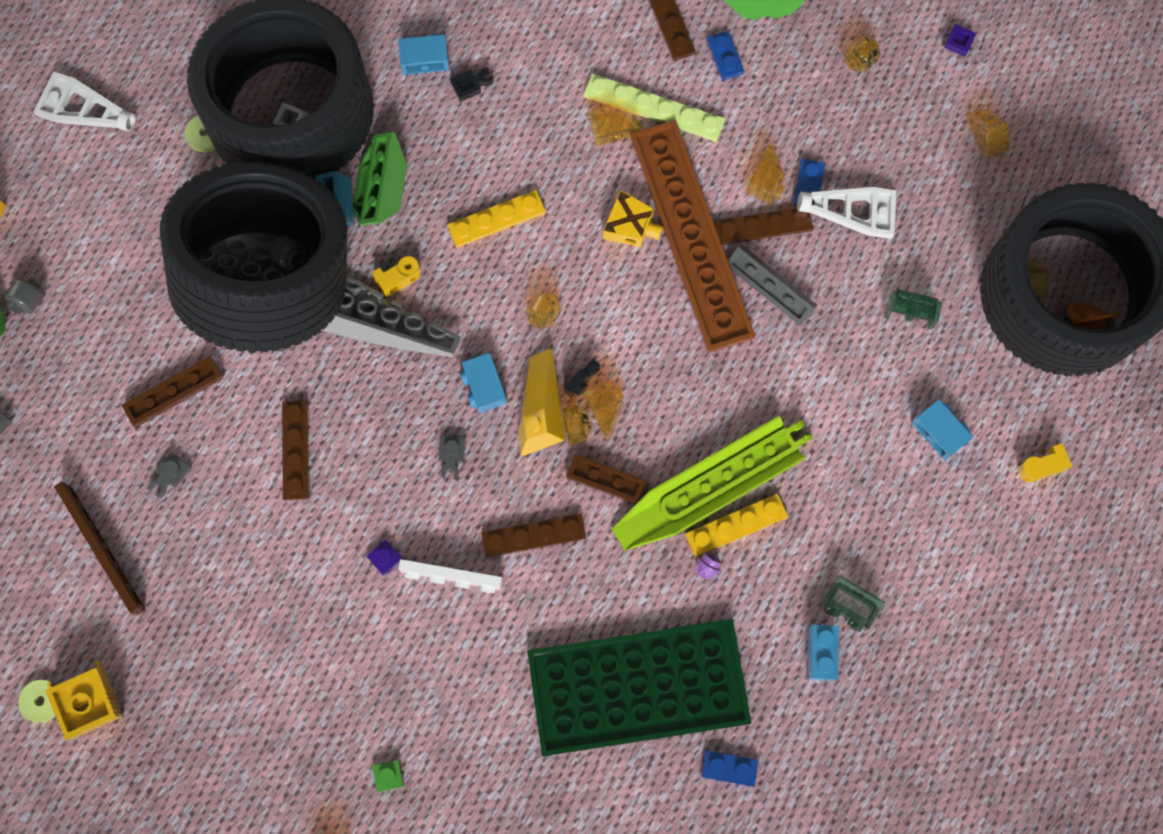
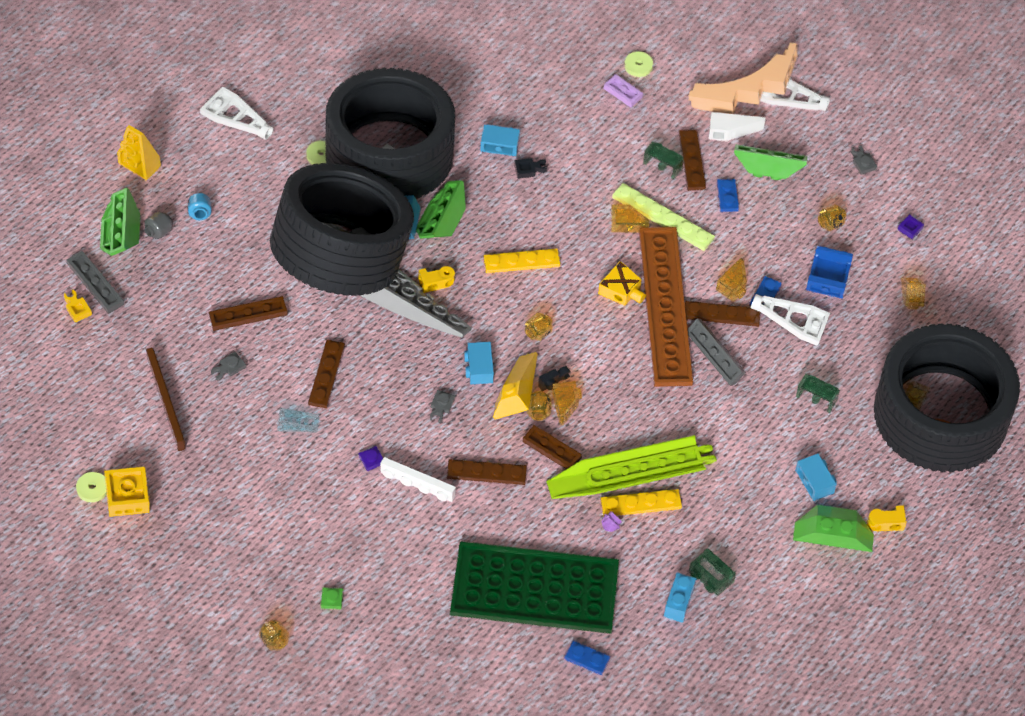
camera: 10 degrees right, 20 degrees down
(69, 254) = (199, 206): none -> dark azure head
(279, 539) = (289, 426): none -> clear light blue slope
(635, 24) = (666, 156): none -> clear green window
(879, 131) = (829, 272): none -> blue panel
(982, 494) = (834, 528): none -> bright green wedge

